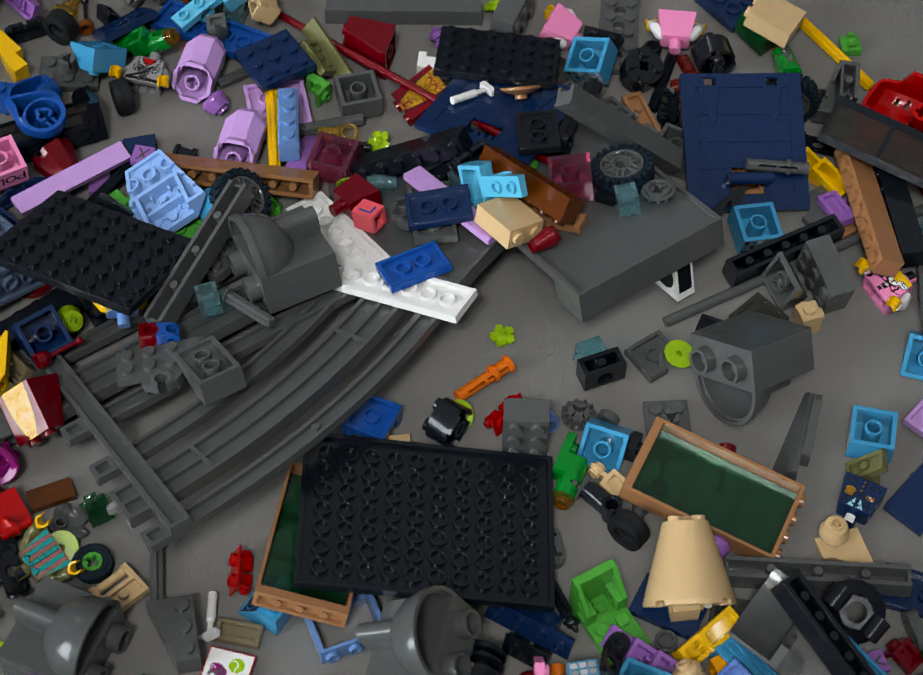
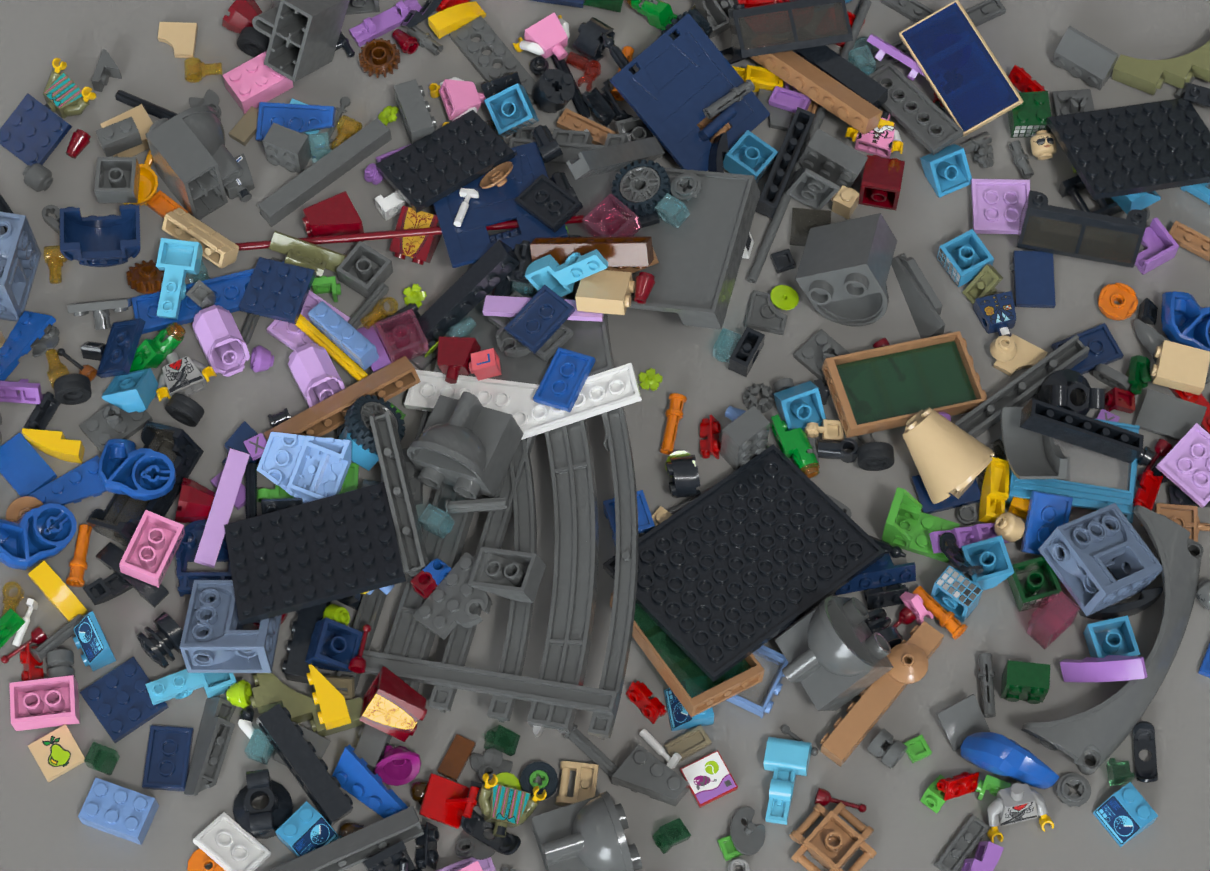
camera: 40 degrees left, 10 degrees up
(855, 324) = (881, 182): none -> dark red slope

